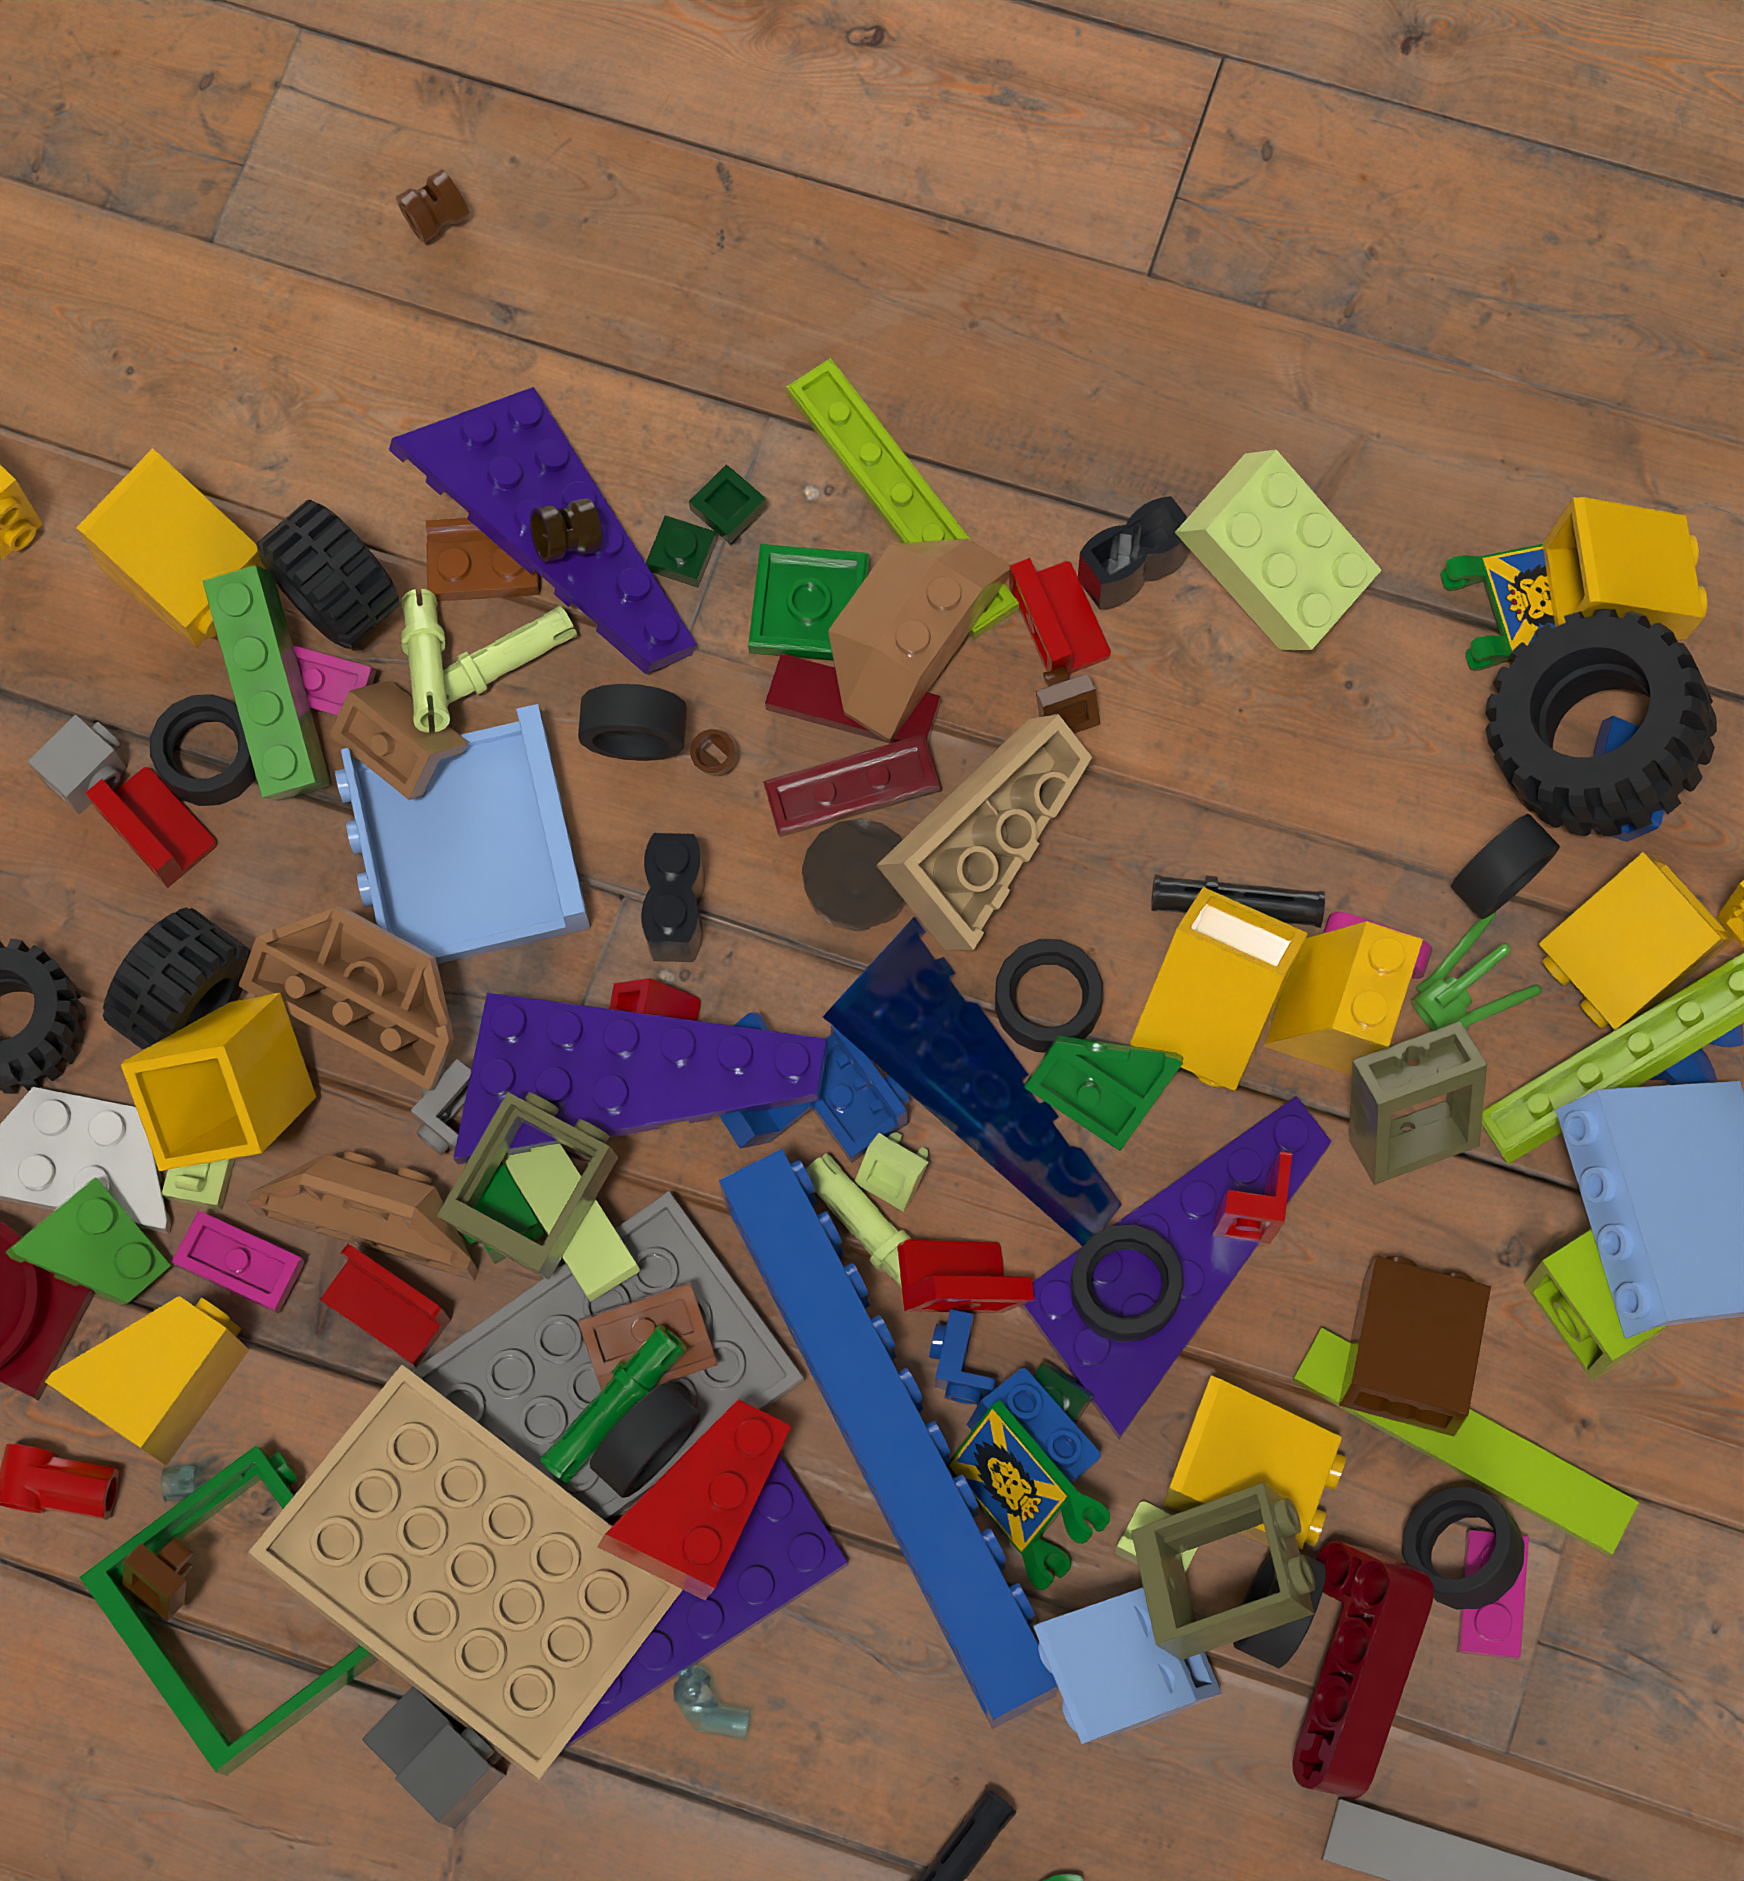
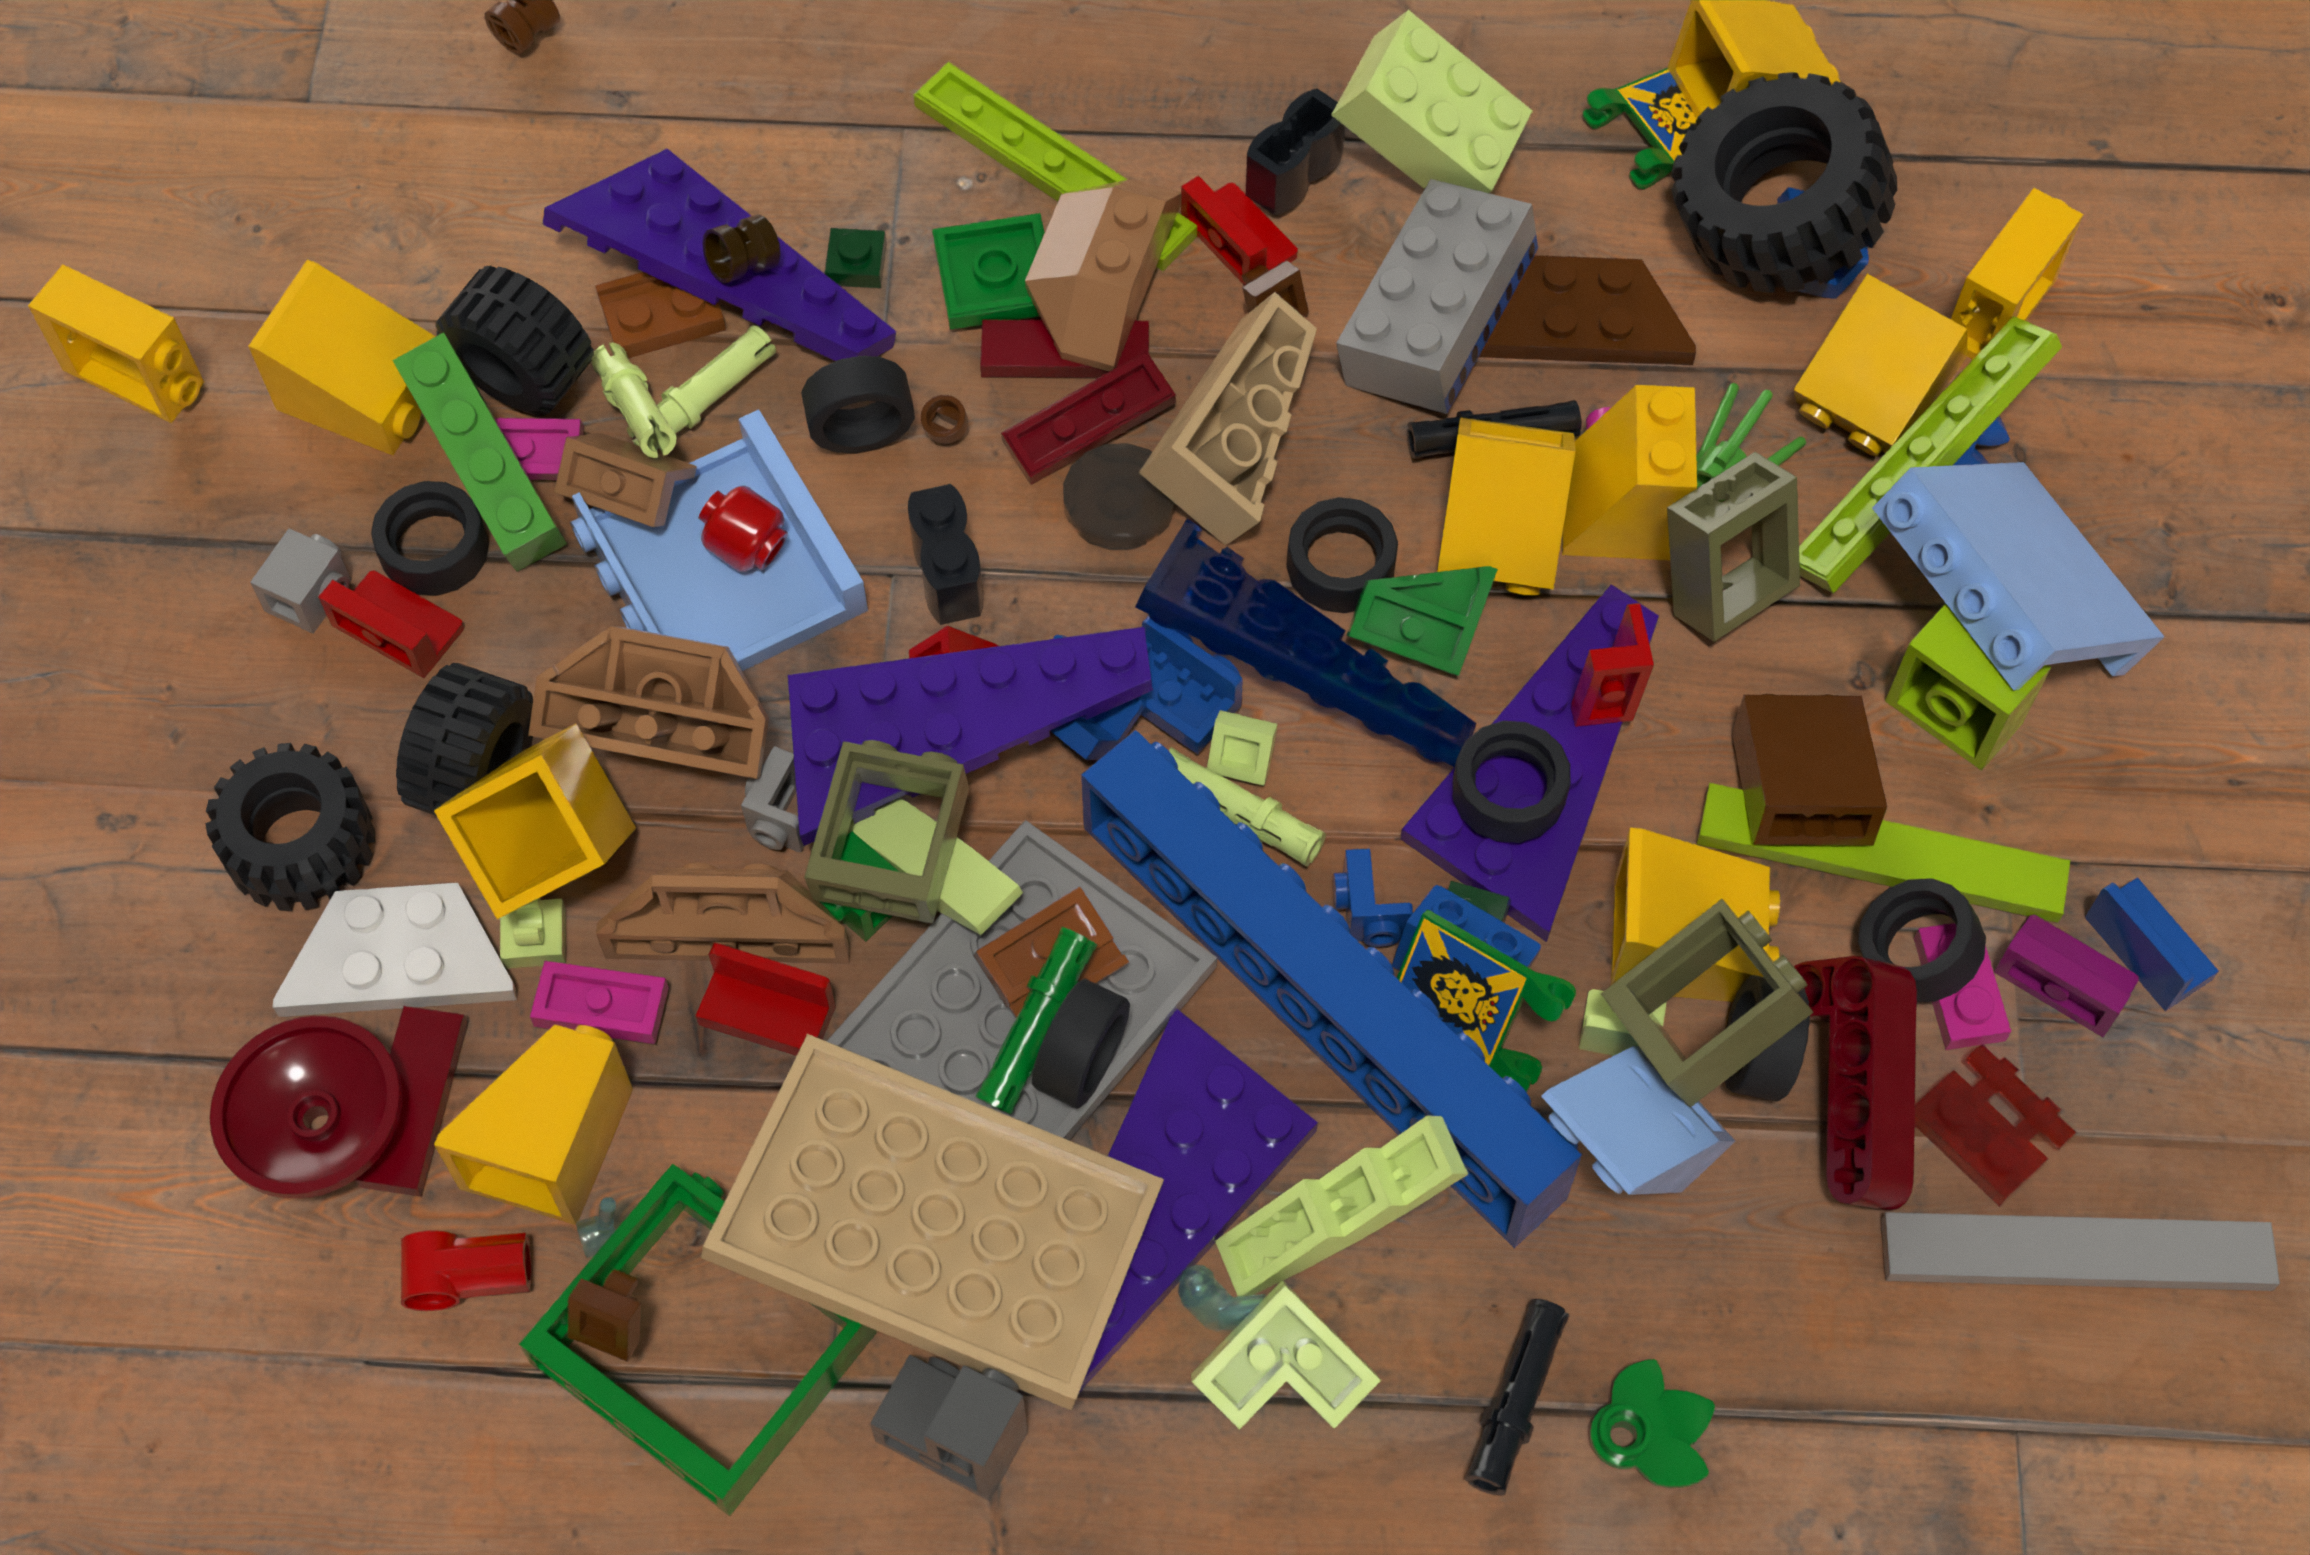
camera: 20 degrees left, 10 degrees down
(93, 1246) = (444, 1020): bright green wing -> none
(491, 822) = (742, 529): none -> red head
(701, 1504) = (1158, 1092): red wedge -> none
(727, 503) = (889, 204): dark green plate -> none
(746, 1775) = (1282, 1344): none -> yellowish green brick
(836, 1659) = (1341, 1207): none -> yellowish green slope
(958, 1277) = (1337, 821): red panel -> none
(1225, 747) = (1438, 295): none -> light grey brick
(1370, 796) = (1590, 314): none -> reddish brown wing
(1455, 1749) = (1982, 1139): none -> clear red plate
(1505, 866) = (1738, 331): black tyre -> none
(1598, 1612) = (2067, 975): none -> magenta panel
(1688, 1605) = (2150, 942): none -> blue panel

